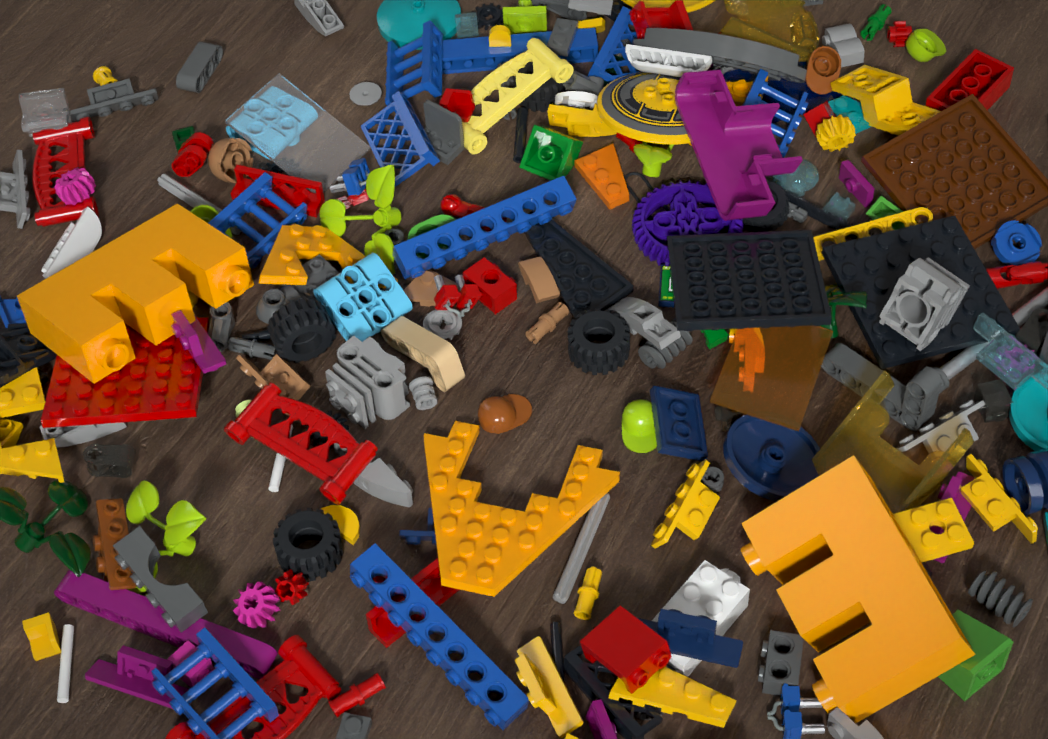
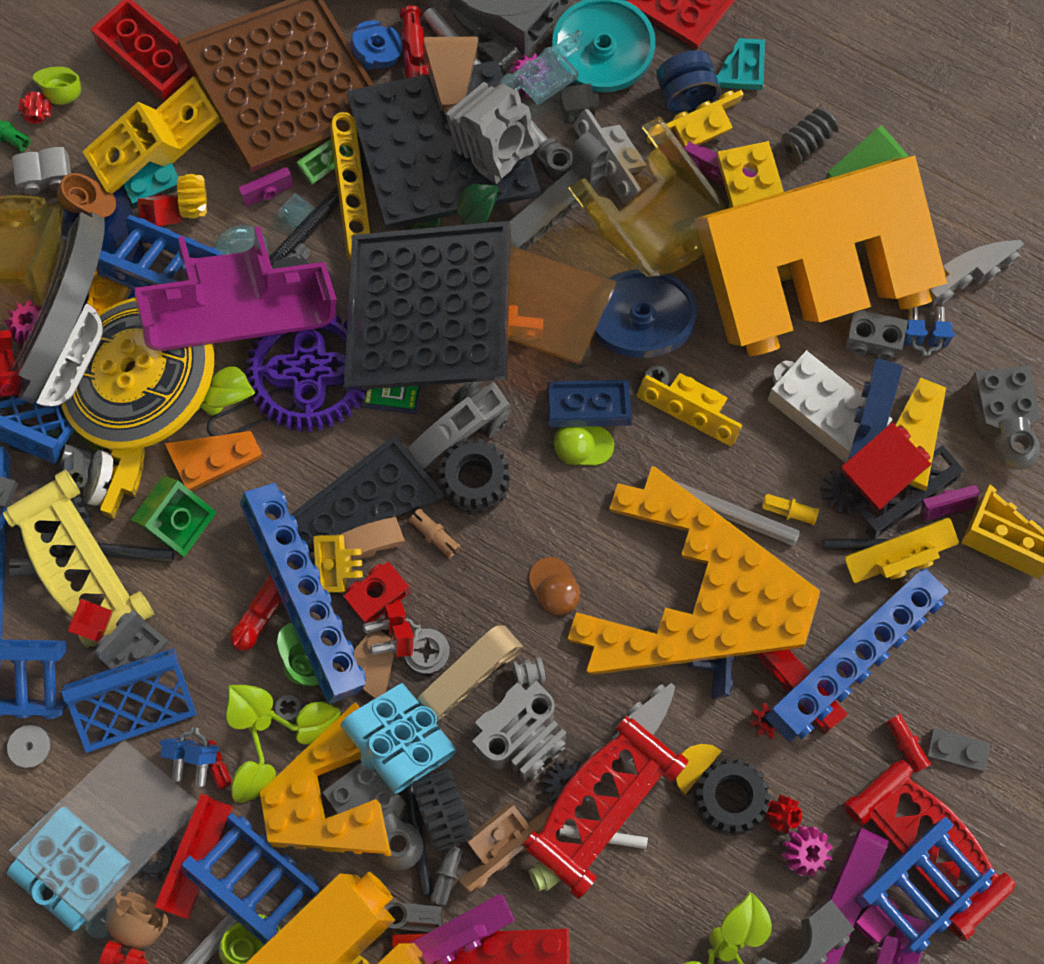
camera: 90 degrees left, 20 degrees up
(514, 252) = (335, 562): none -> yellow hinge
(990, 276) = (450, 67): none -> medium nougat slope

